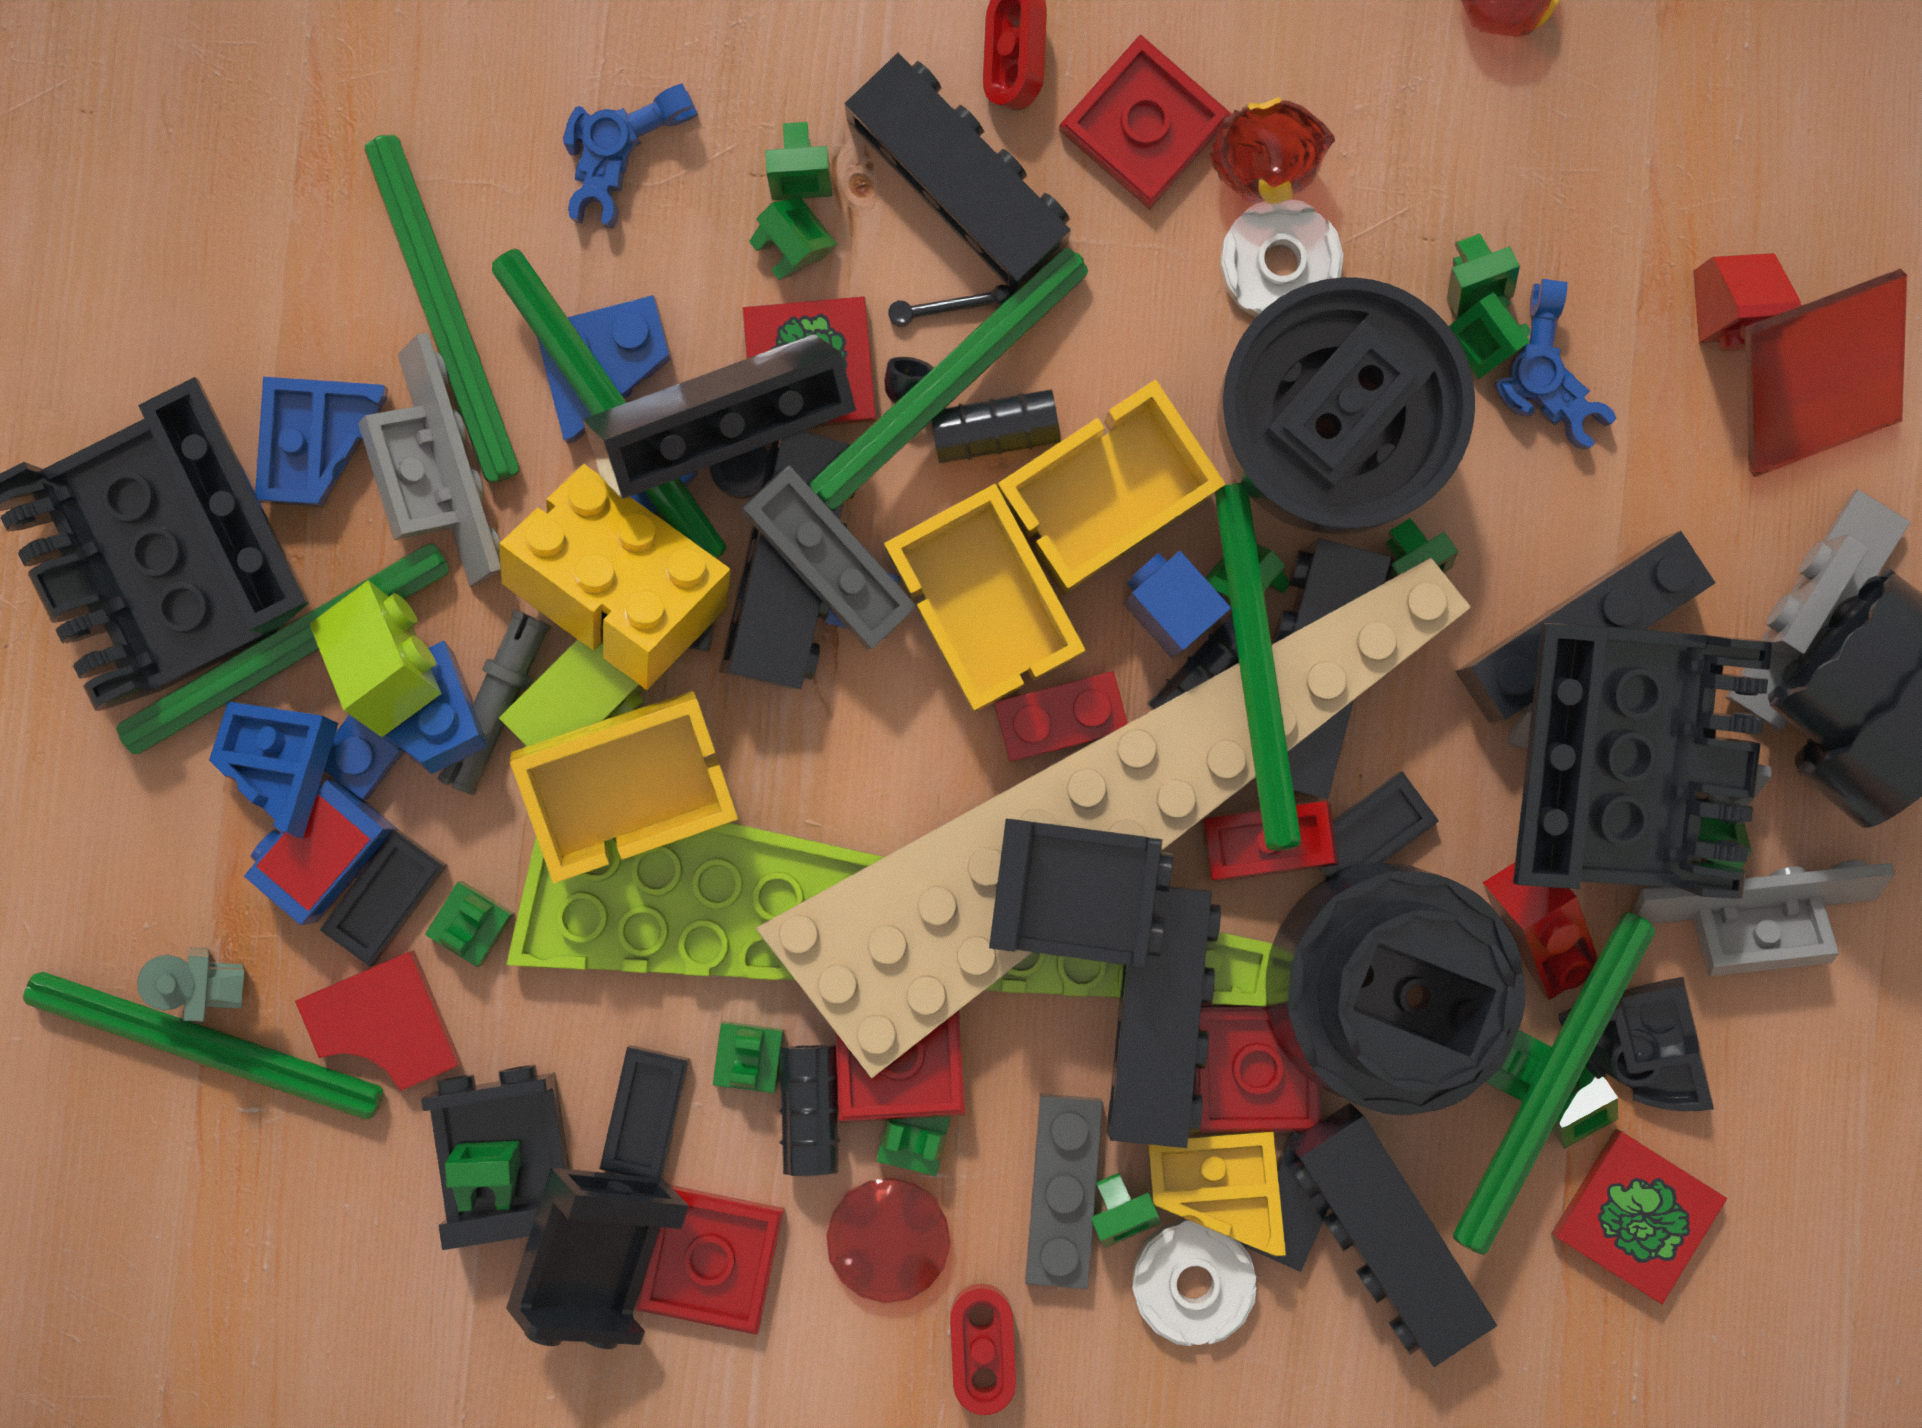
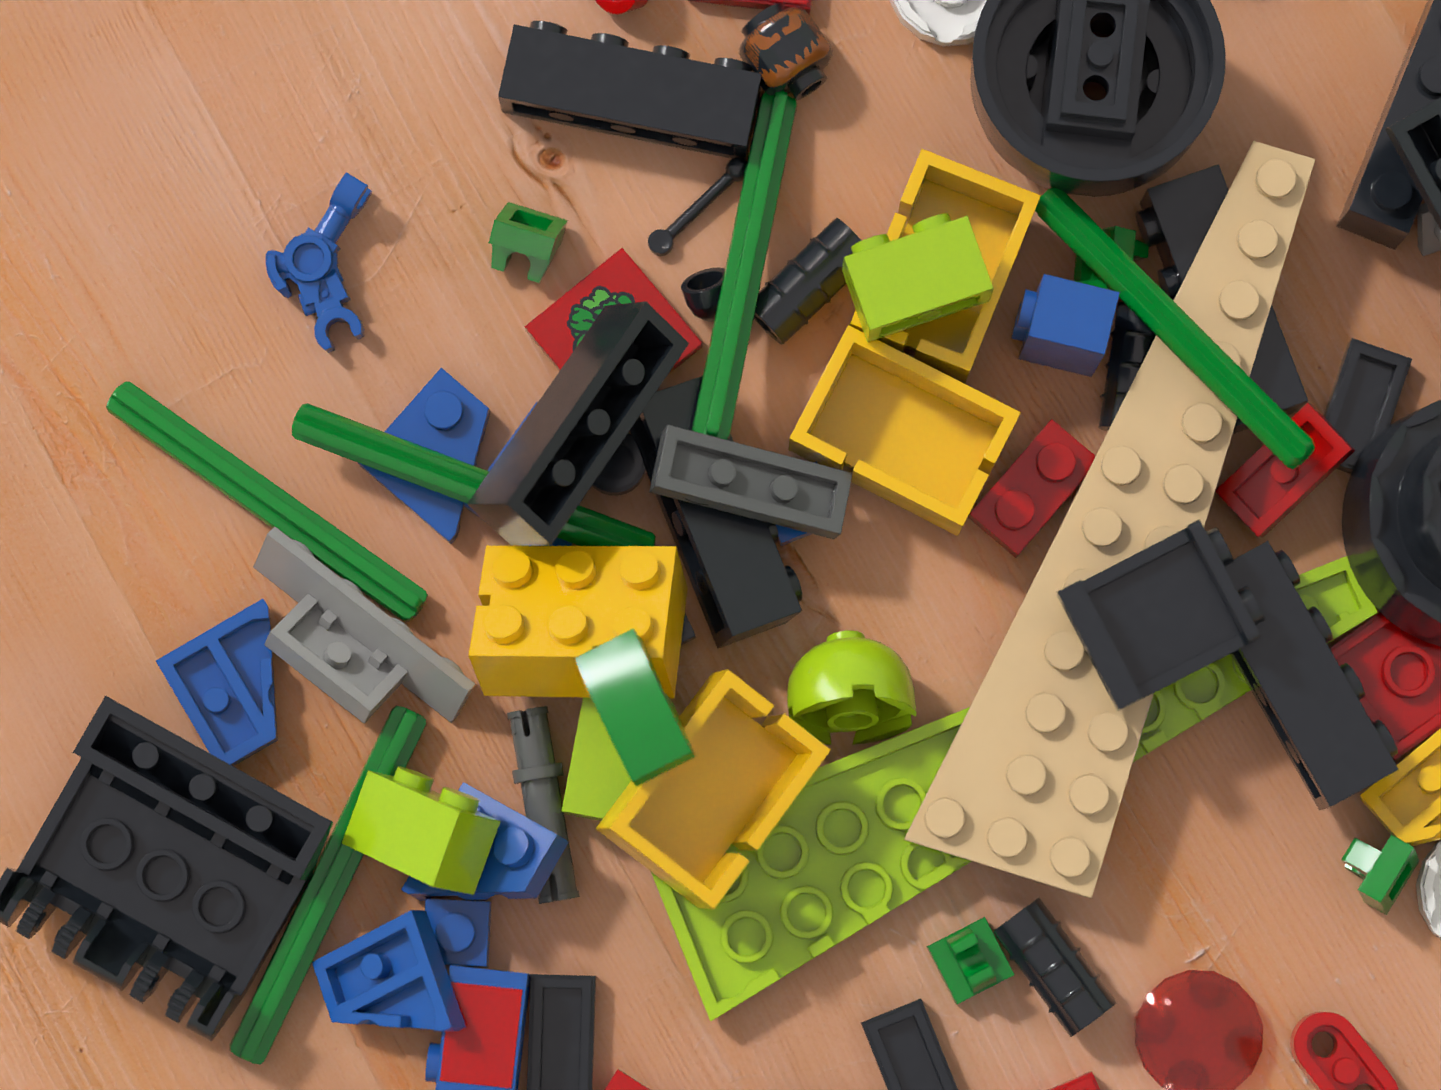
camera: 30 degrees left, 5 degrees down
(469, 923) = (651, 1011): green tile -> none
(593, 678) = (635, 707): none -> green slope
(798, 167) = (491, 176): green tile -> none
(798, 776) = (851, 687): none -> lime cylinder
(914, 1086) = (1132, 882): red tile -> none
(914, 1143) = (1158, 931): green tile -> none
(1063, 1191) = (1317, 889): dark grey plate -> none
(1074, 480) = (916, 276): none -> lime brick
(1107, 225) = (786, 50): none -> black head
(1412, 548) = (1230, 146): green tile -> none

